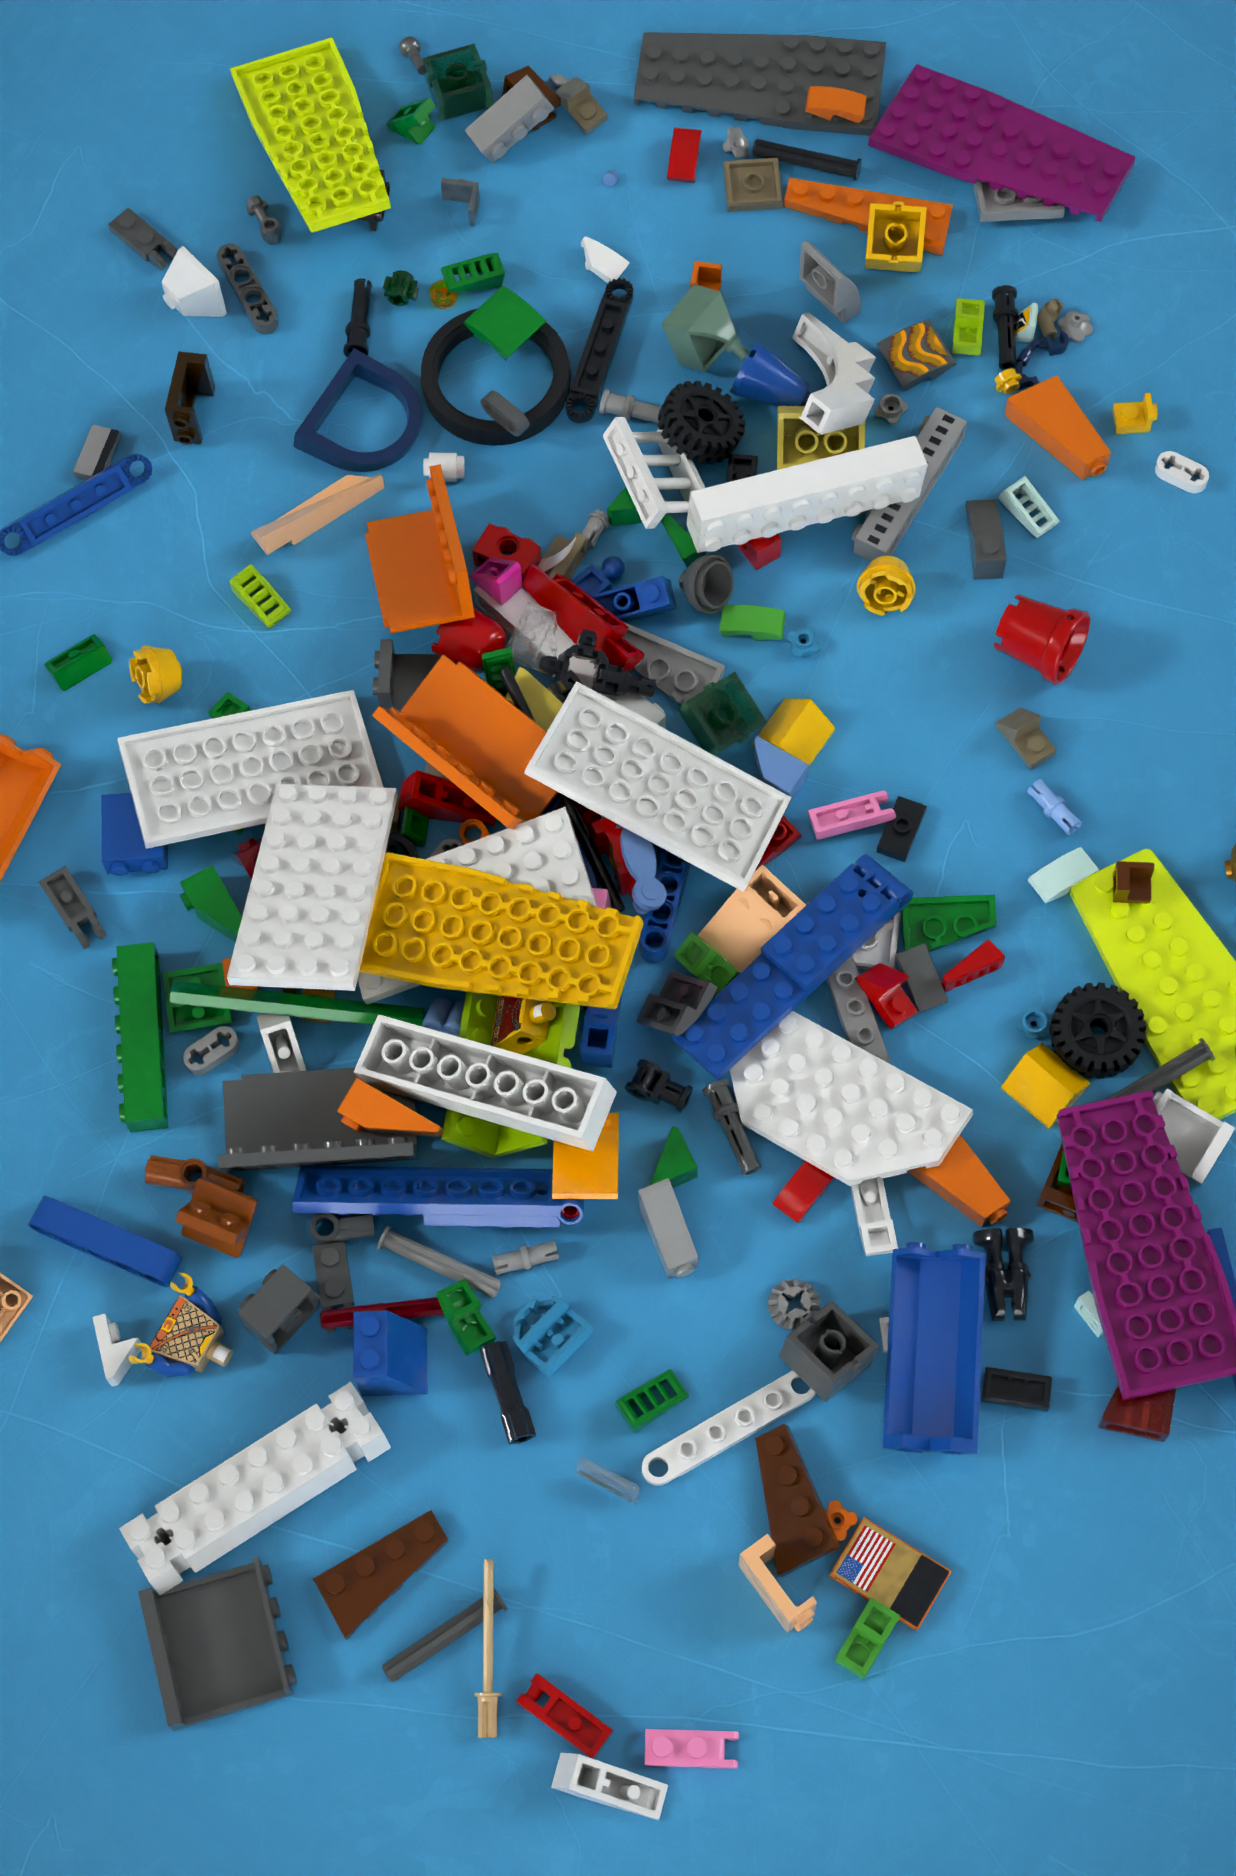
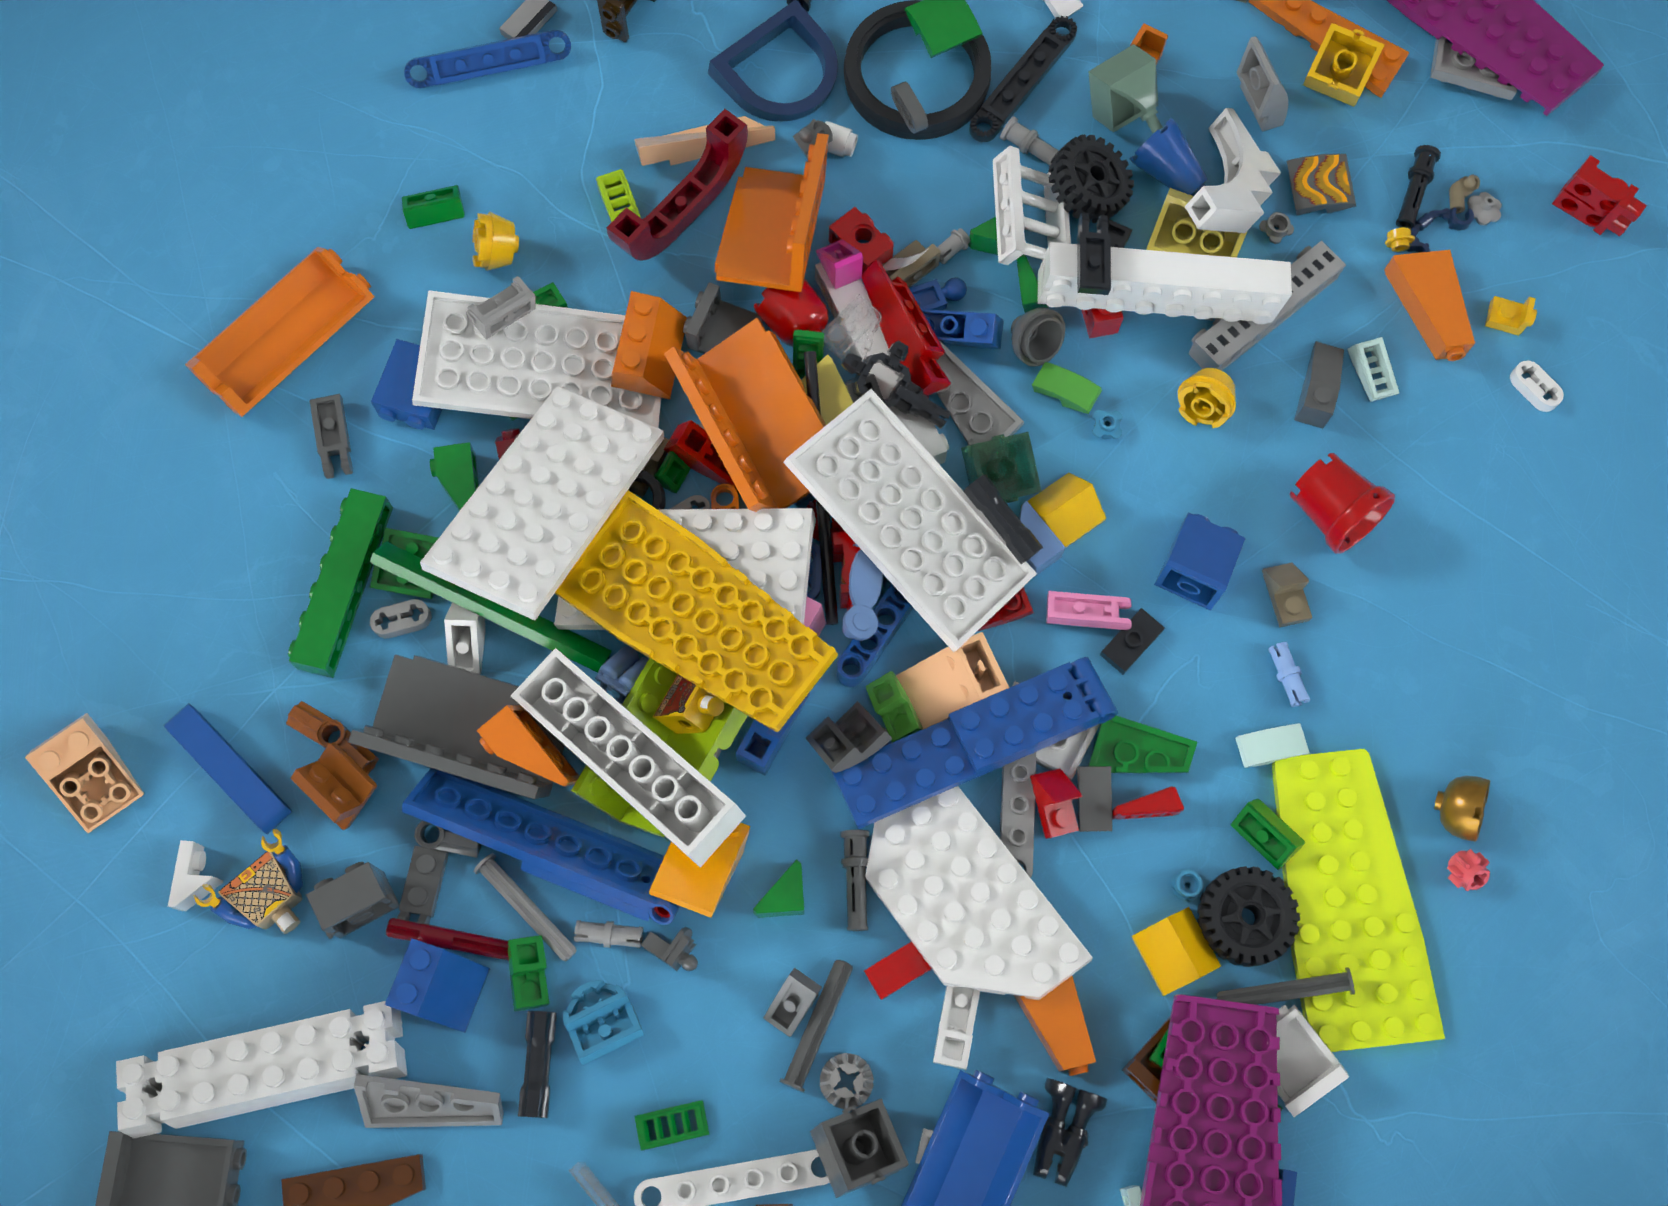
camera: 15 degrees right, 5 degrees up
(195, 729) = (502, 308): none -> light grey hinge
(304, 615) = (666, 222): none -> dark red arch
(345, 718) = (647, 333): none -> orange slope
(413, 1464) = (418, 1104): none -> light grey wing
(420, 472) = (809, 133): none -> dark grey piece
(592, 1252) = (673, 954): none -> dark grey piece
(654, 1084) = (797, 808): black connector -> none
(668, 1229) = (752, 962): light grey slope -> none
(718, 1252) = (792, 1002): none -> slope
(724, 746) = (989, 501): none -> black axle
(736, 491) = (1093, 257): none -> black hinge
(749, 1267) = (817, 1025): none -> dark grey axle
(936, 735) = (1200, 561): none -> blue slope
(968, 326) = (1380, 174): lime slope -> none
(1026, 324) = (1438, 190): light aqua slope -> none
(1087, 952) = (1267, 833): none -> green slope
(1132, 882) = (1338, 781): reddish brown panel -> none
(1176, 283) = (1599, 199): none -> red hips

